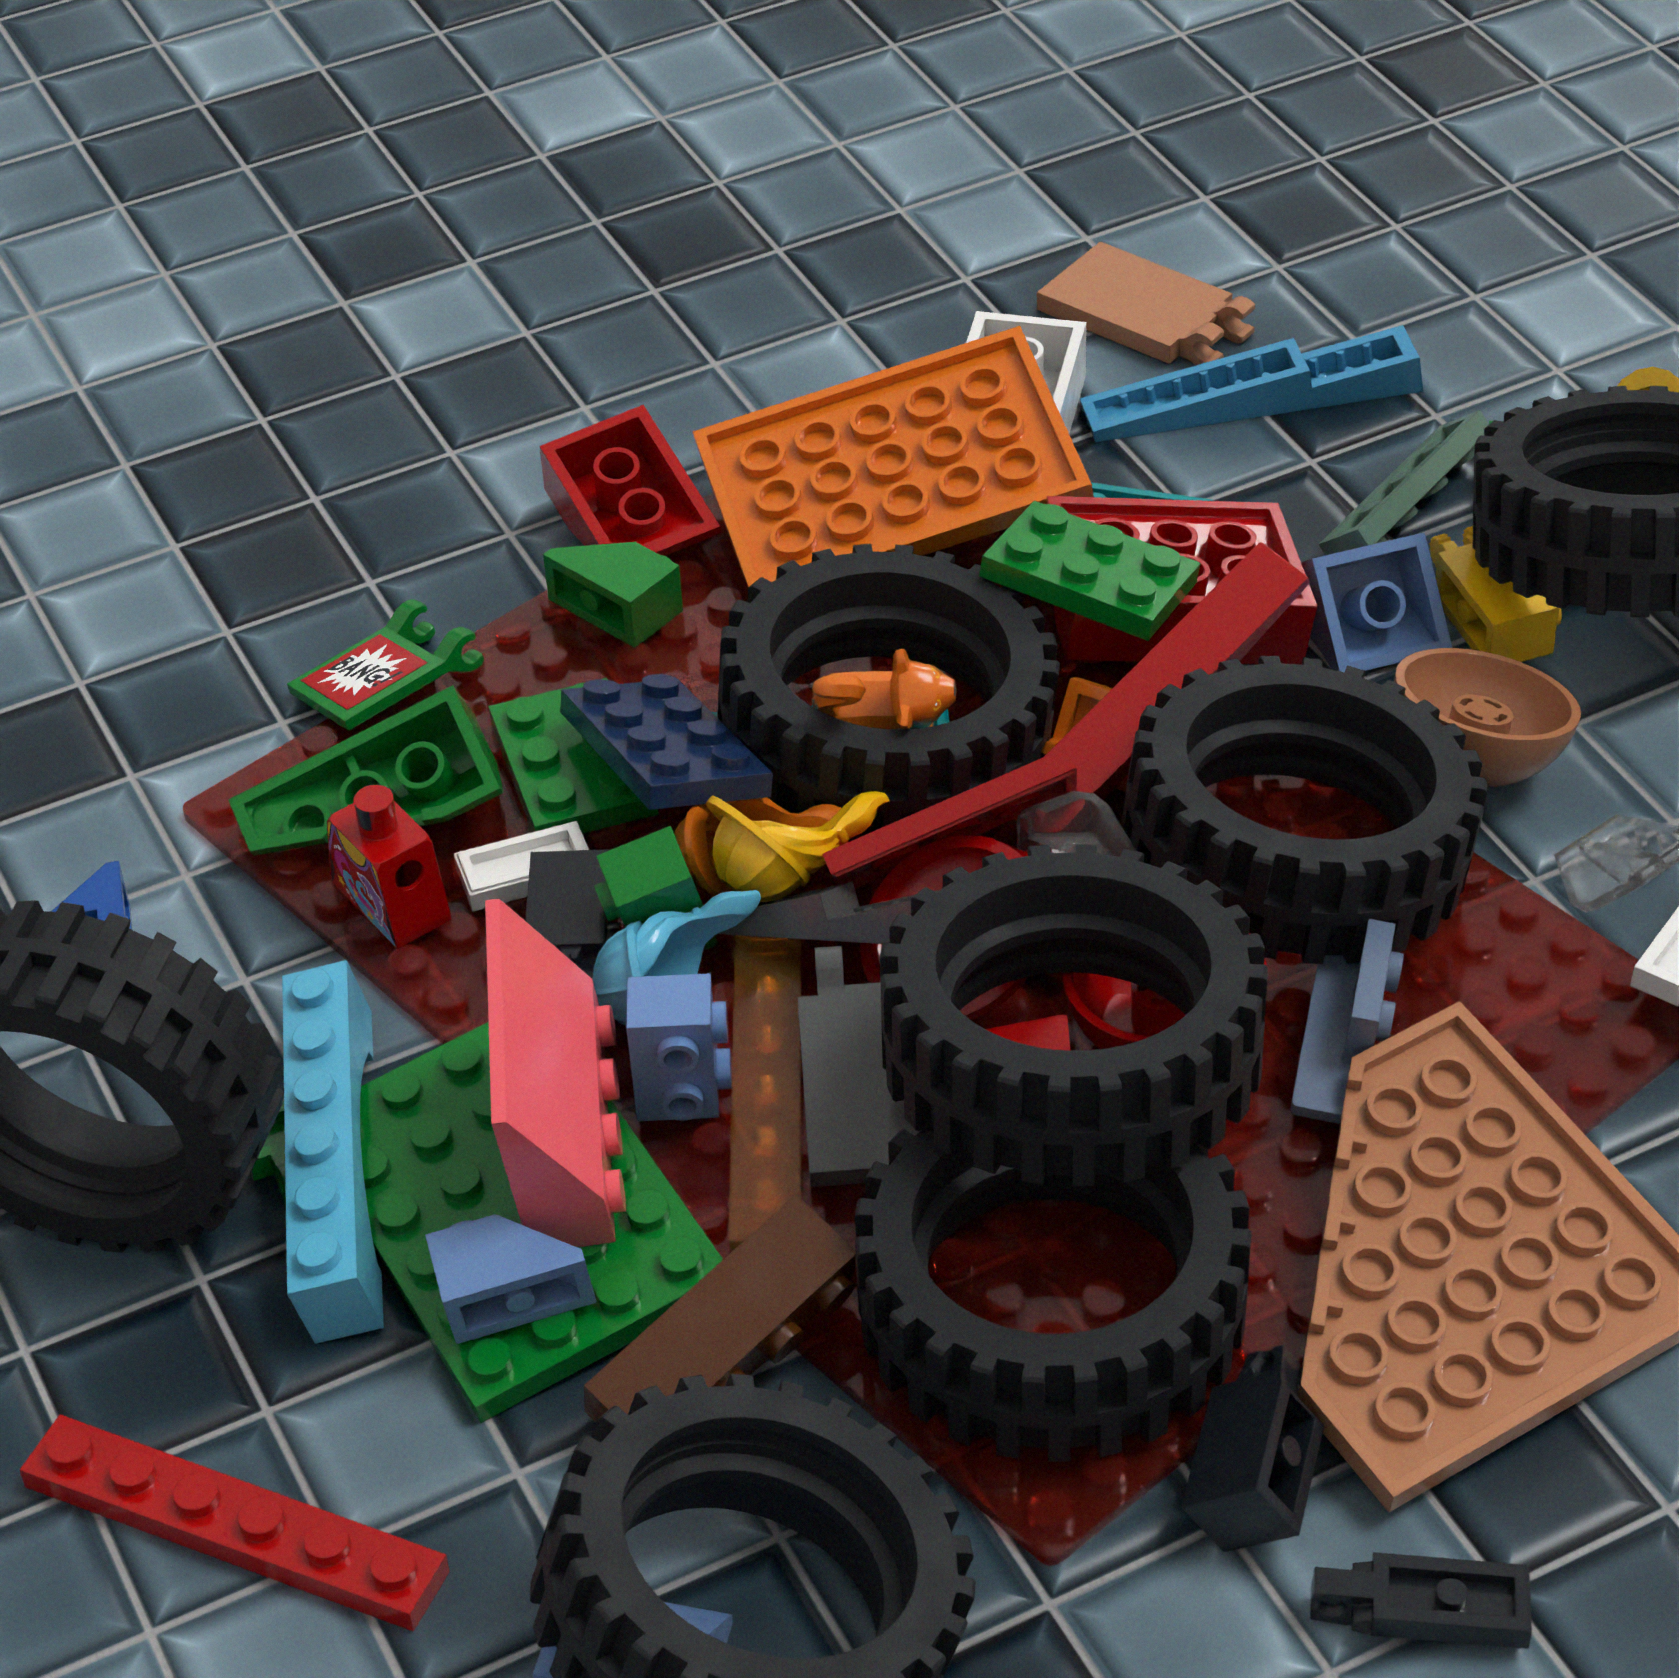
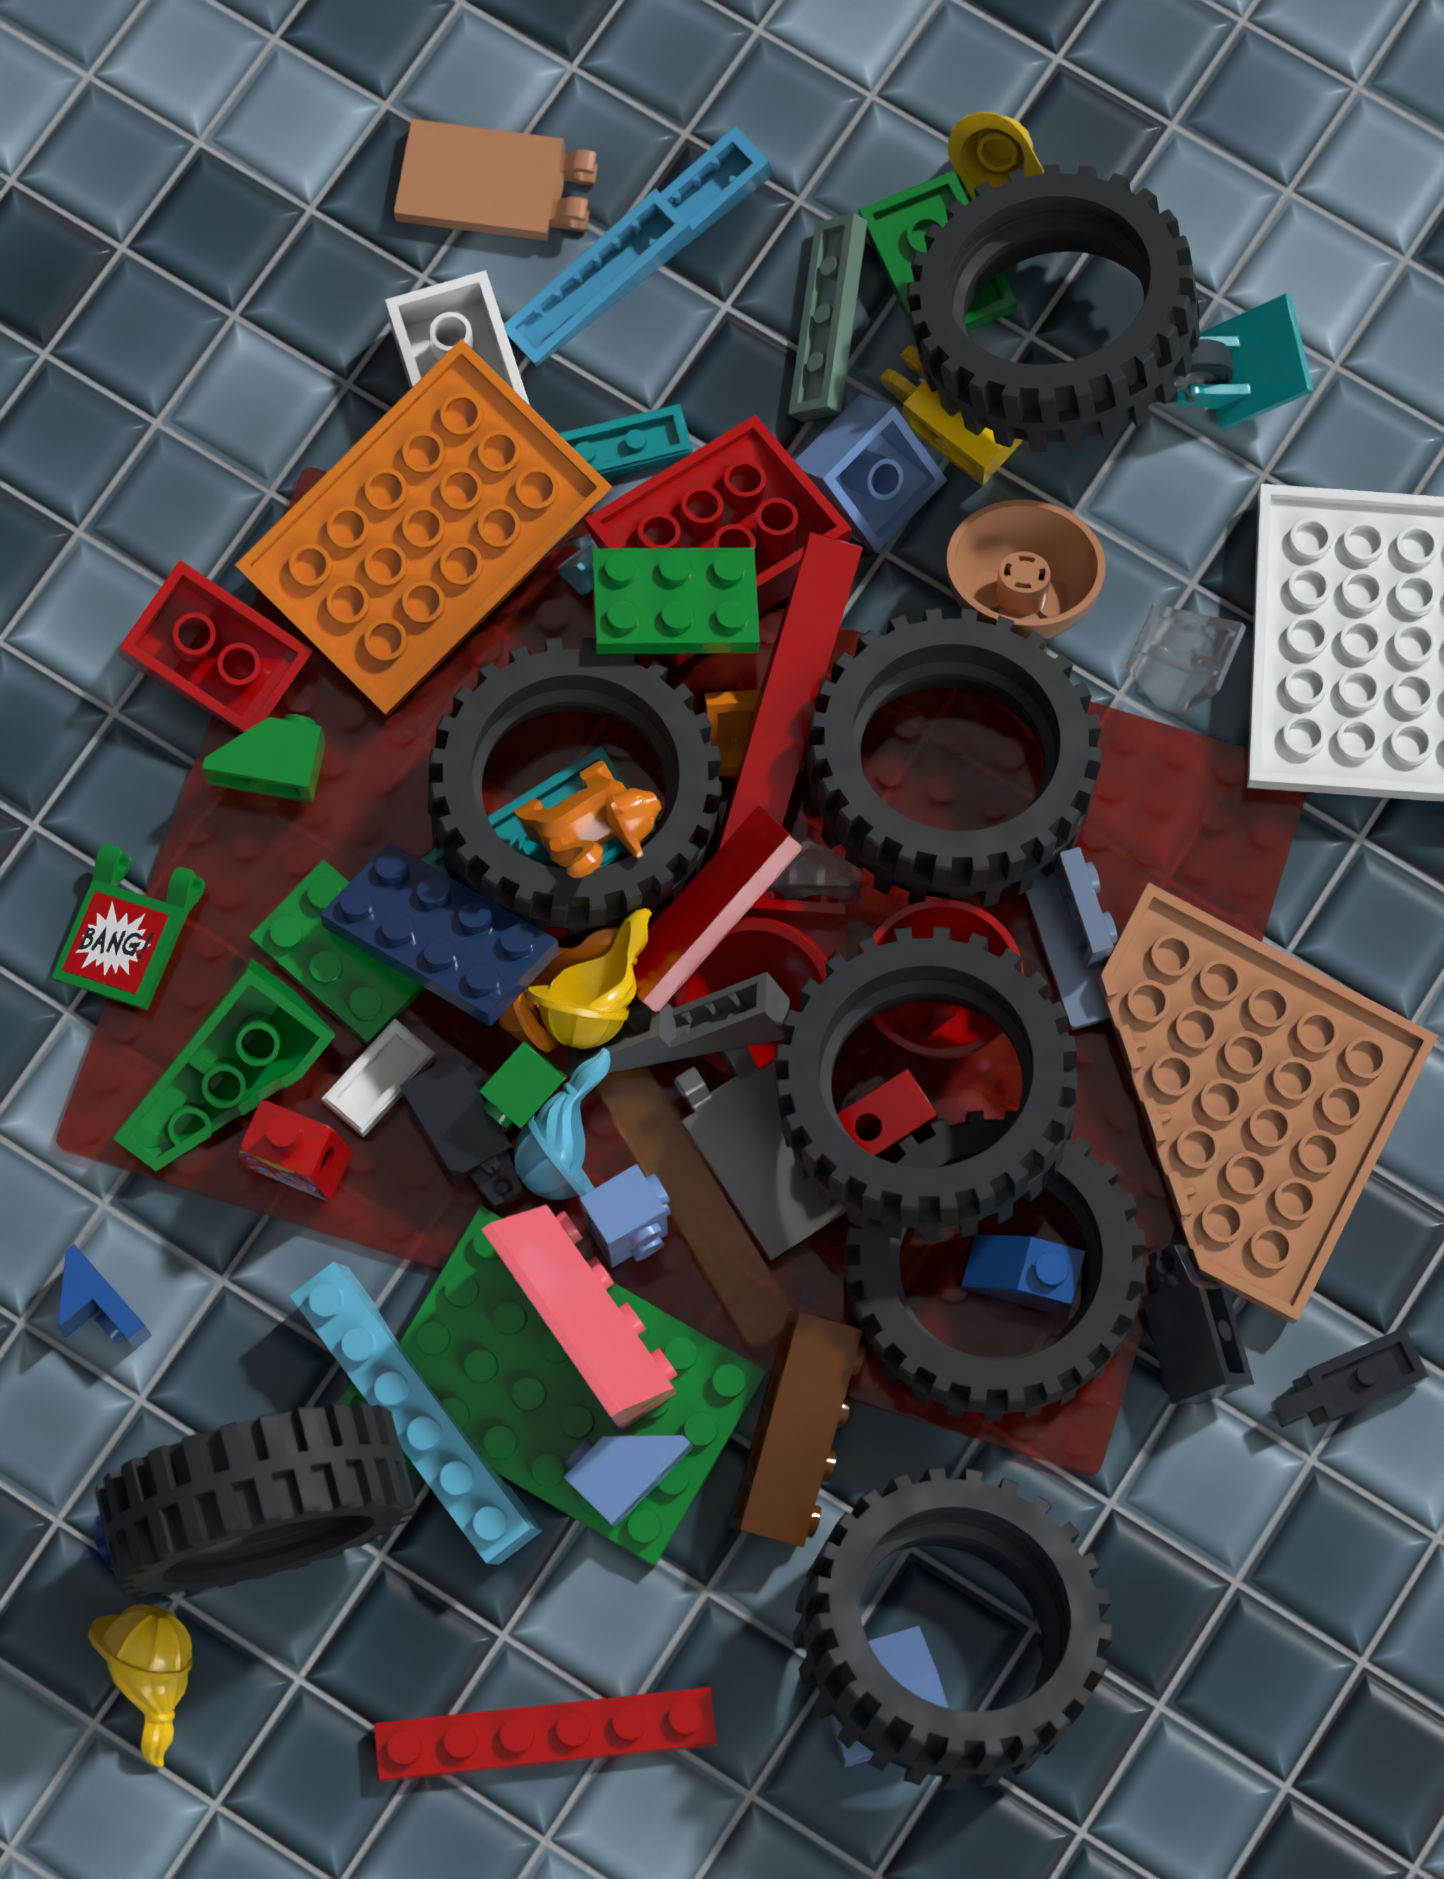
camera: 30 degrees left, 30 degrees up
(1085, 1290) = (1024, 1271): none -> blue slope

